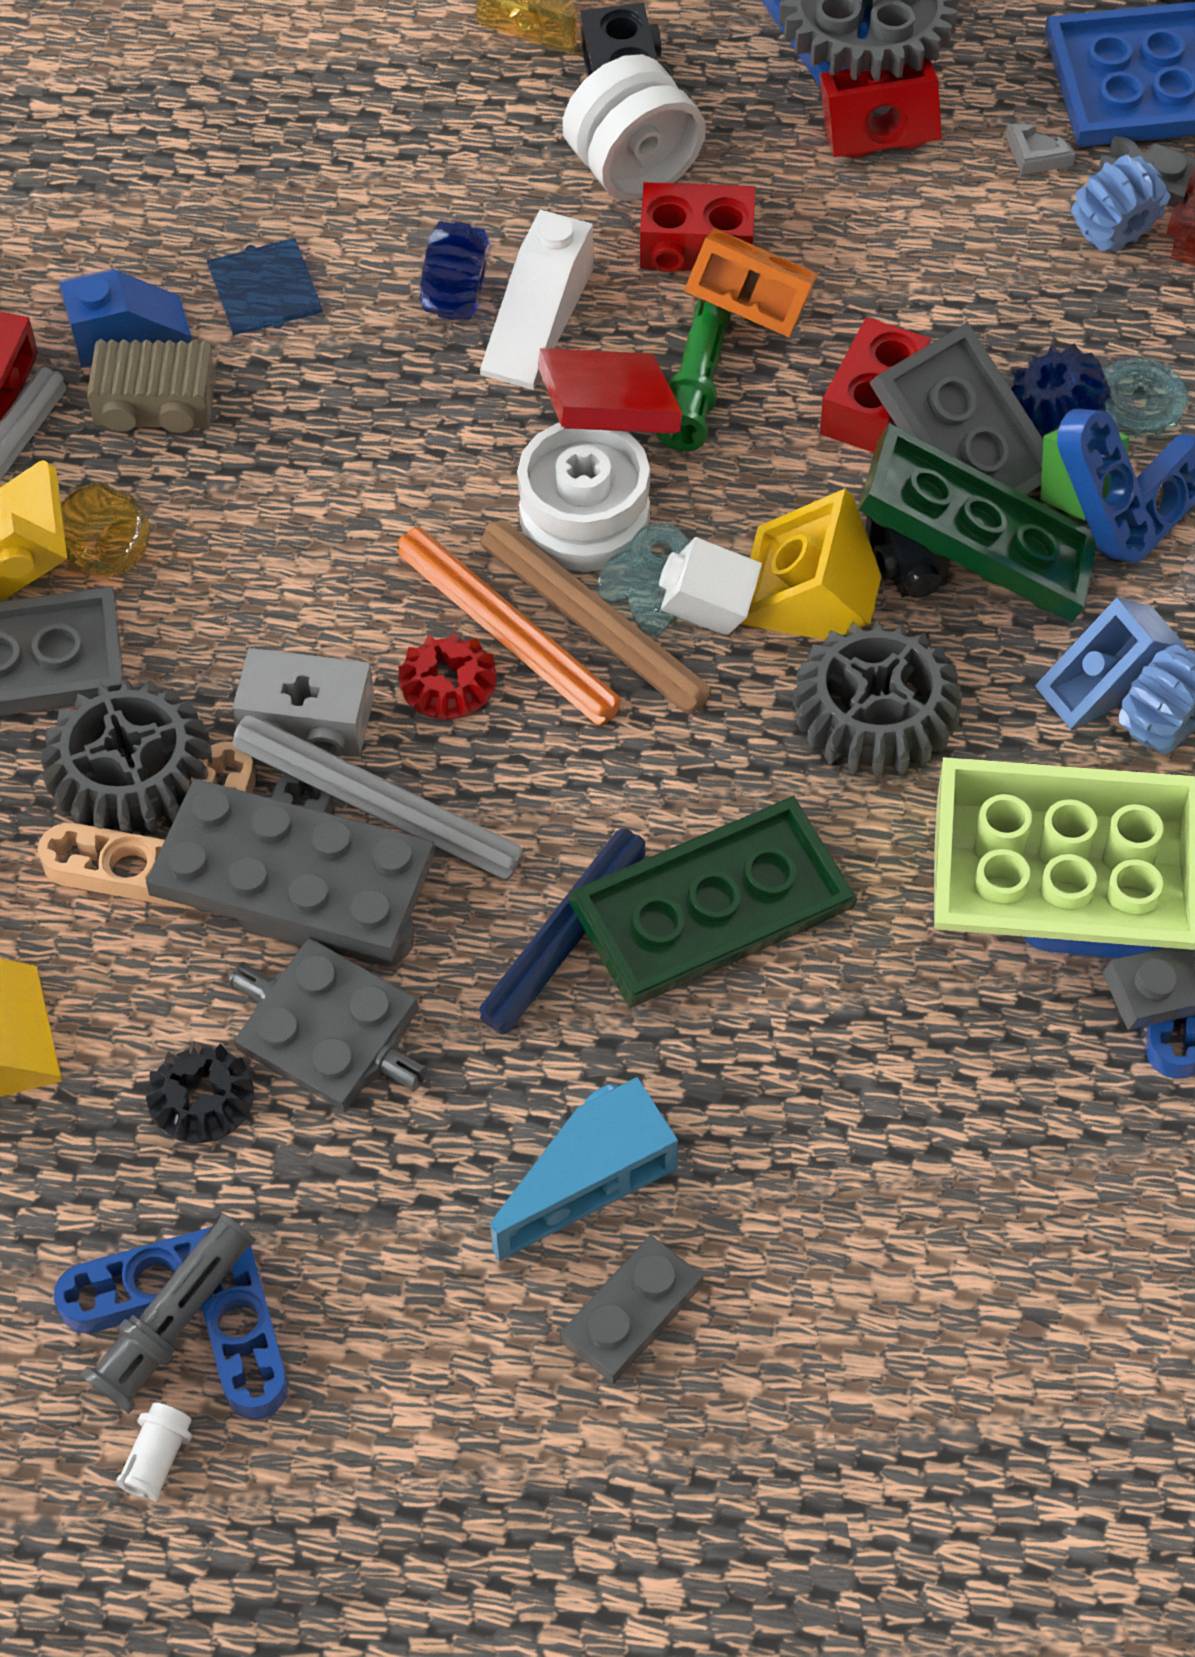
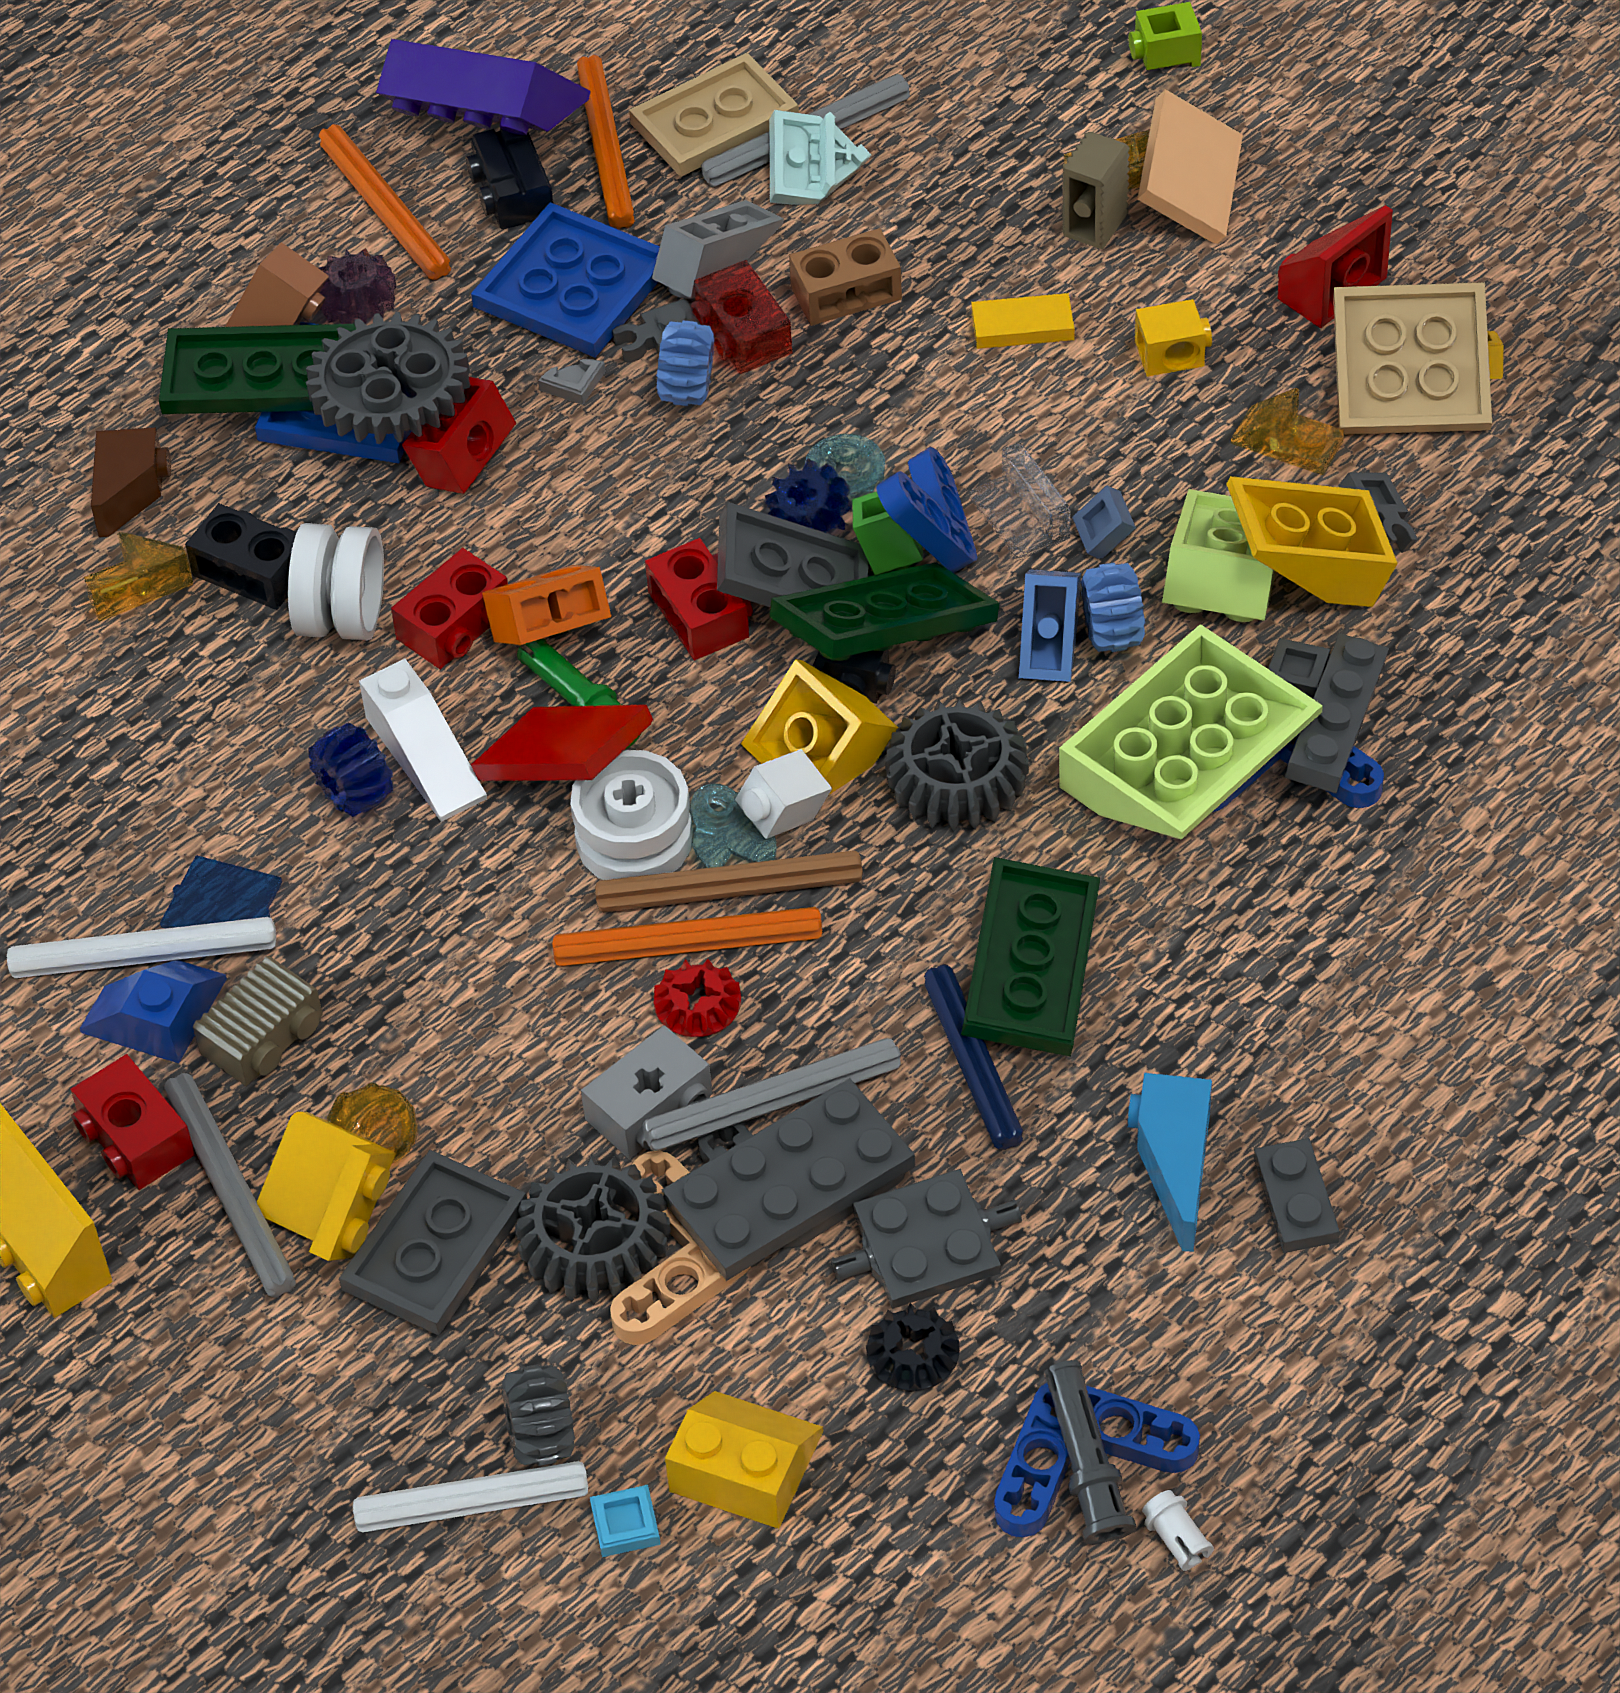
camera: 50 degrees left, 5 degrees down
(167, 265) = (141, 947): none -> white axle

